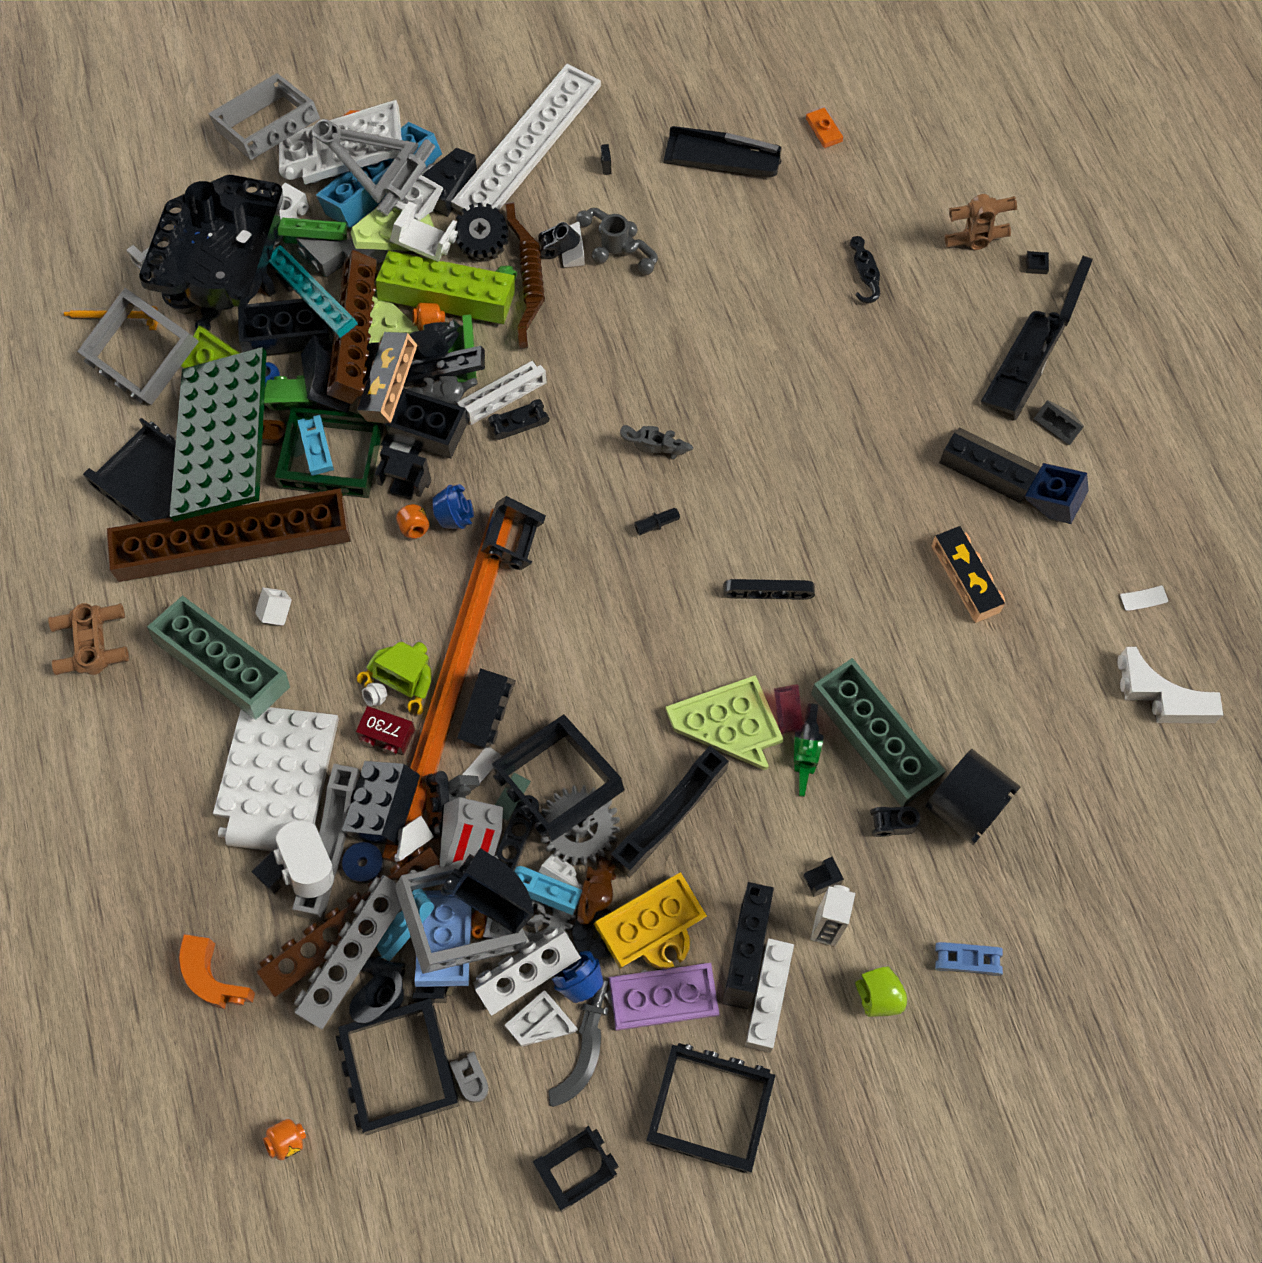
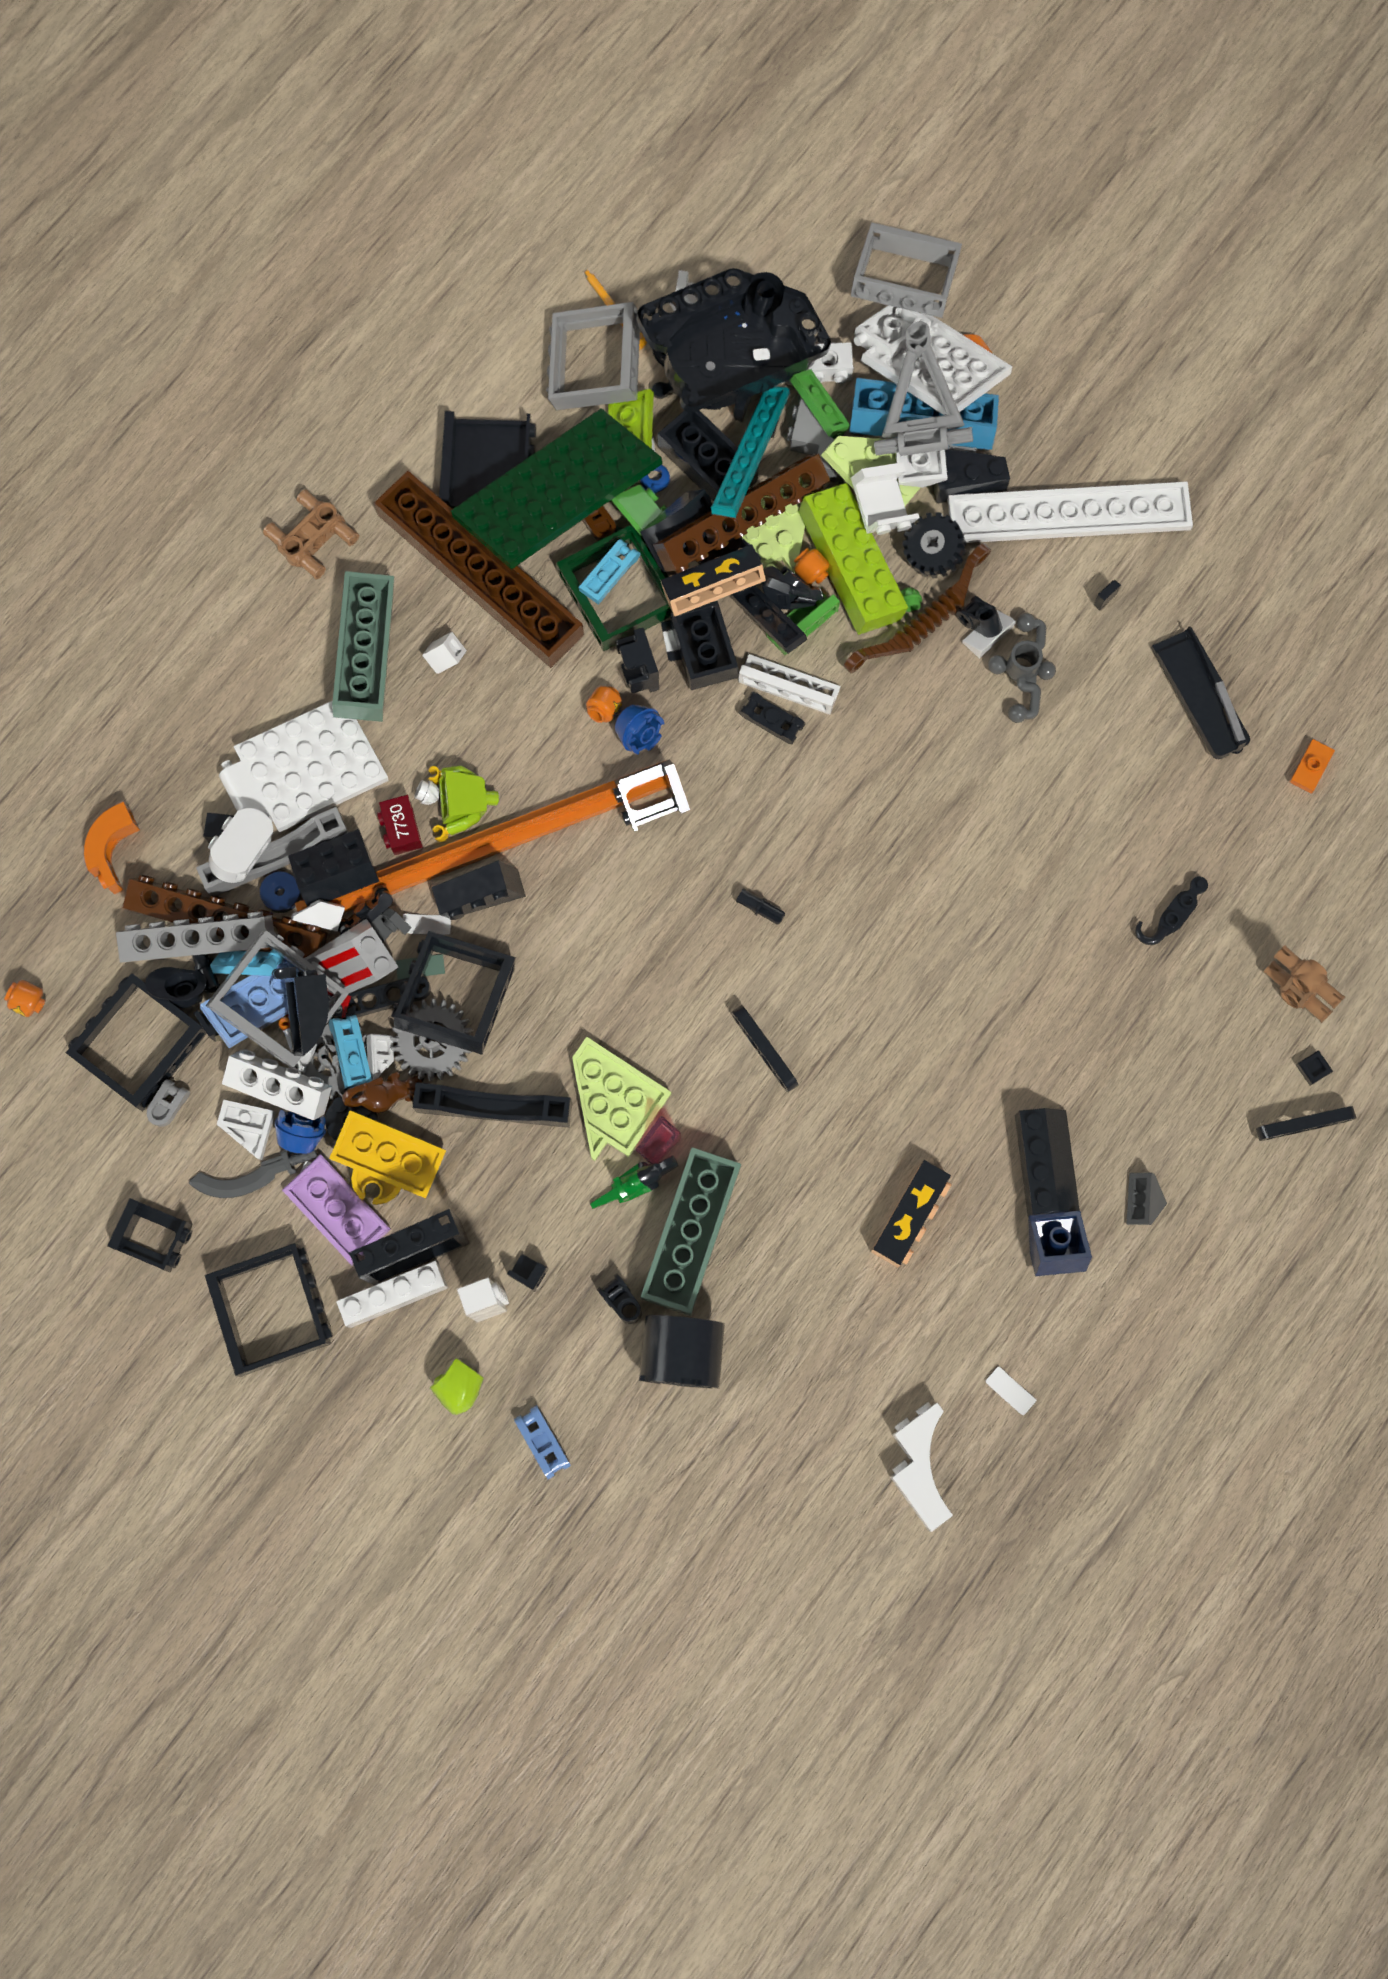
camera: 55 degrees right, 10 degrees up
(446, 389) = (749, 636): dark grey animal -> none
(650, 440) = (834, 847): dark grey animal -> none
(1024, 363) = (1182, 1126): black piece -> none

